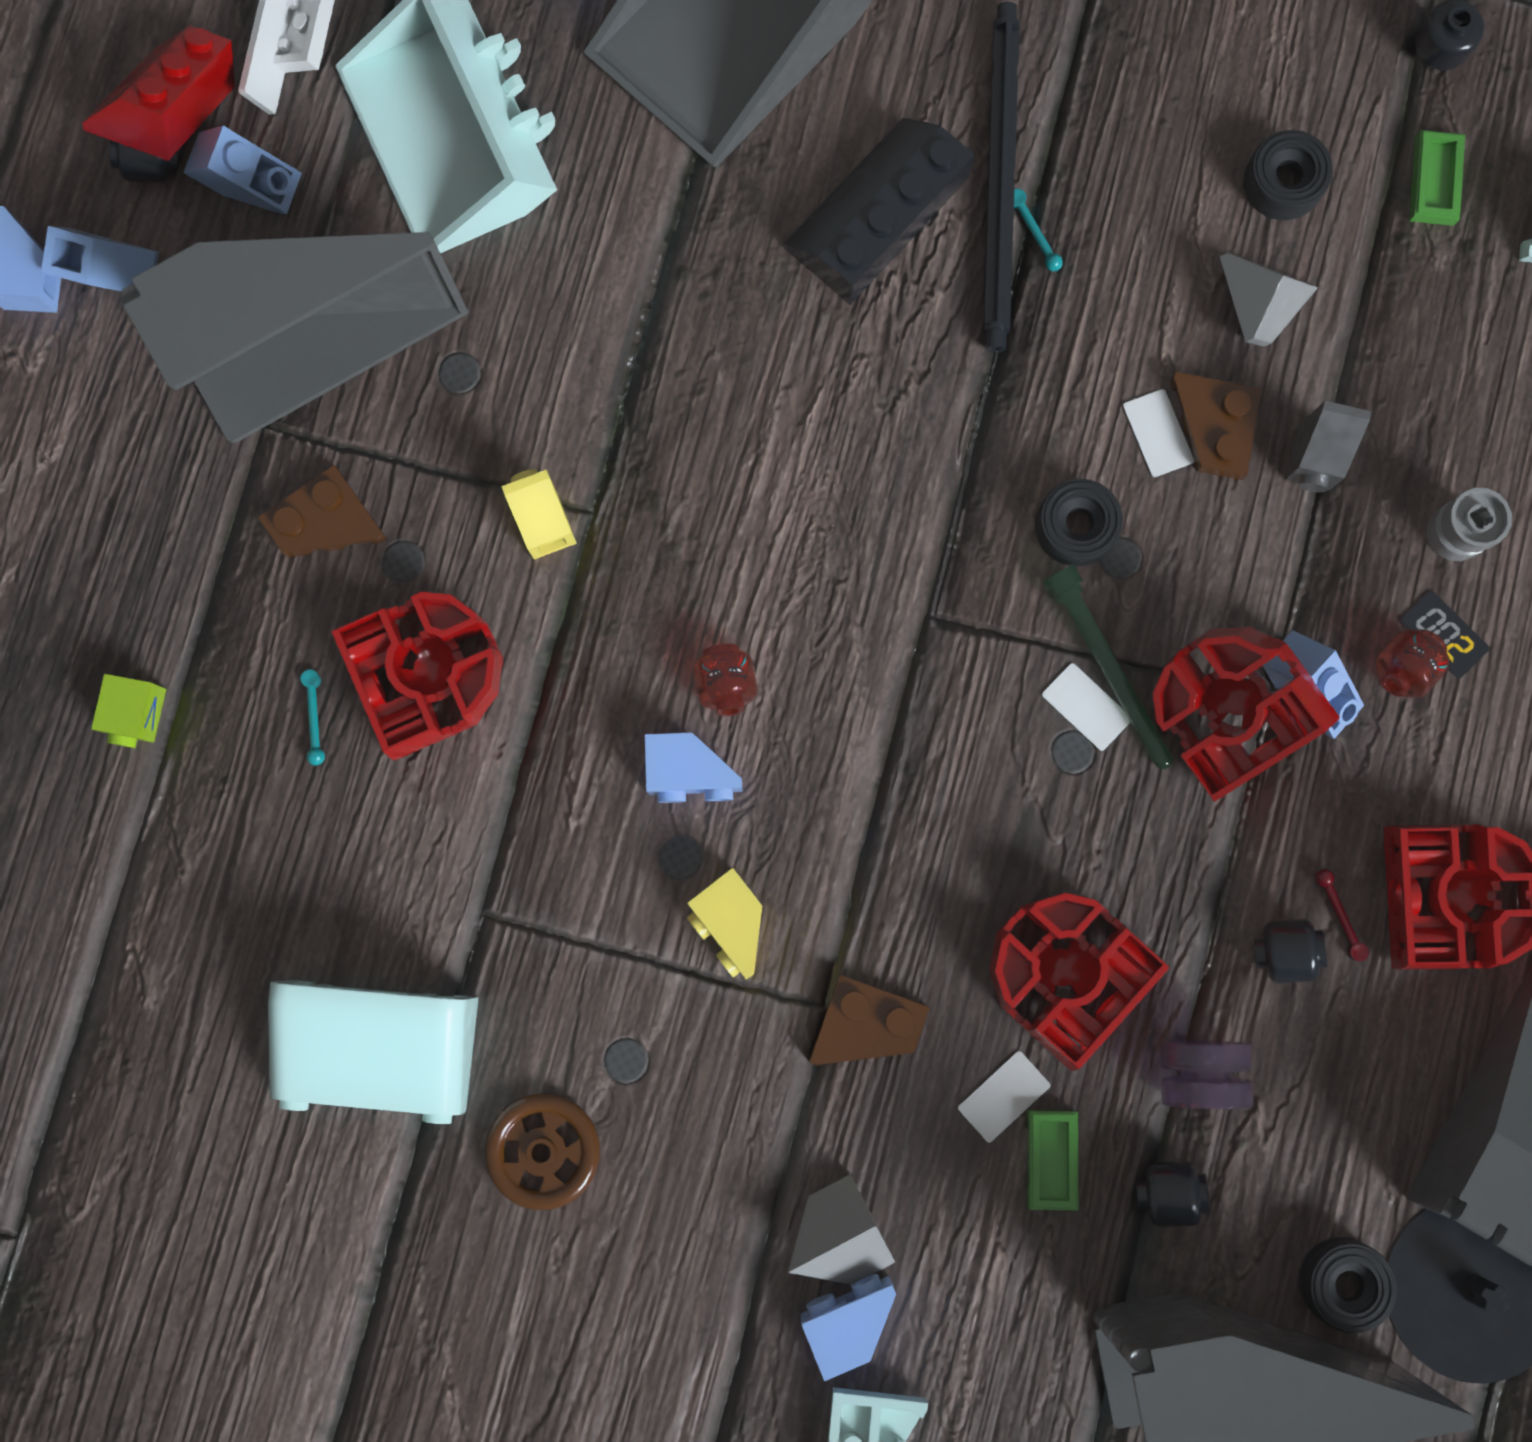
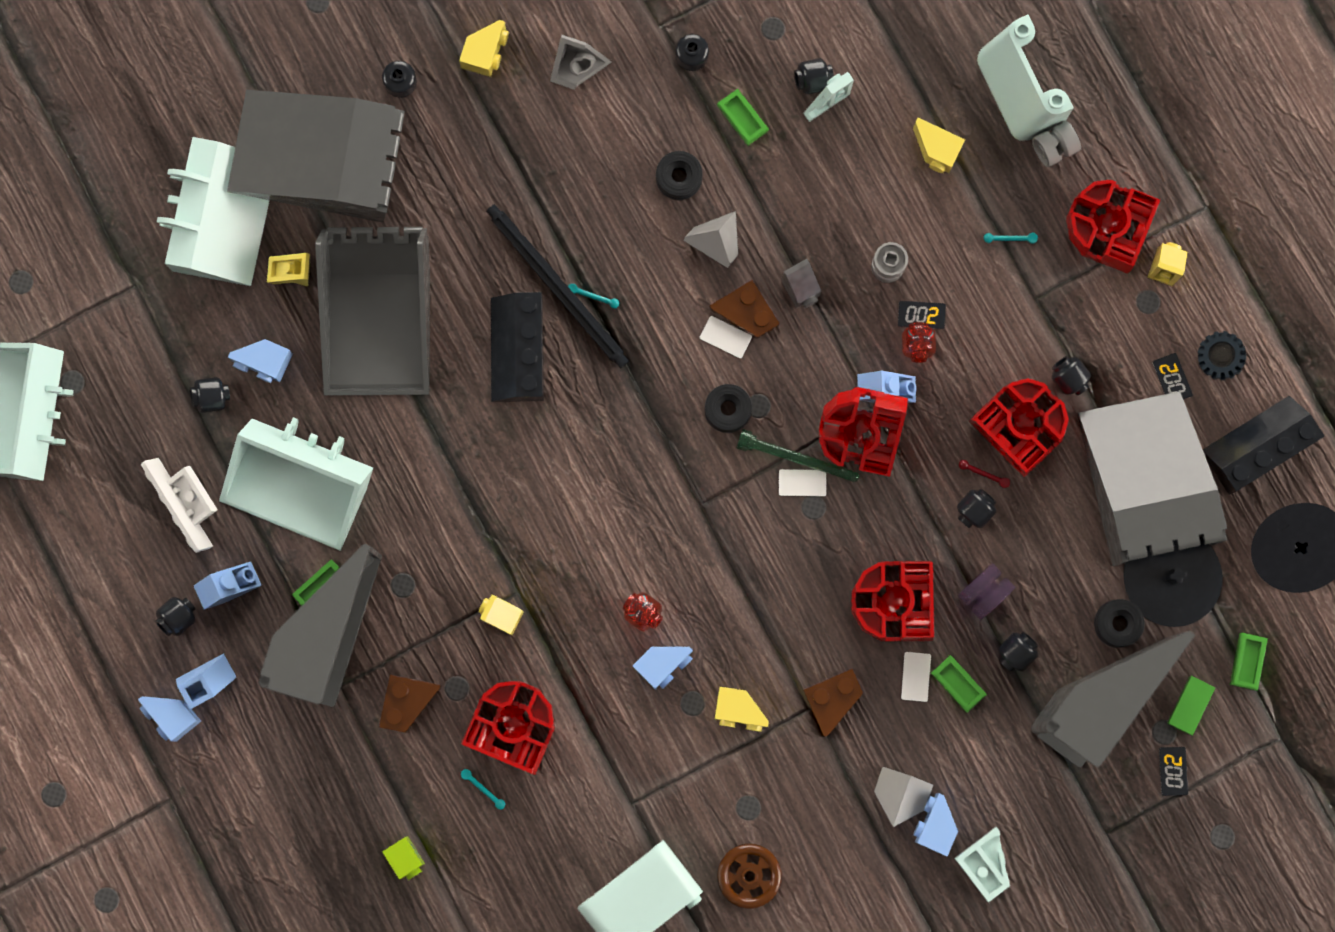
camera: 45 degrees left, 0 degrees up
(167, 94) = (164, 583): red slope -> none

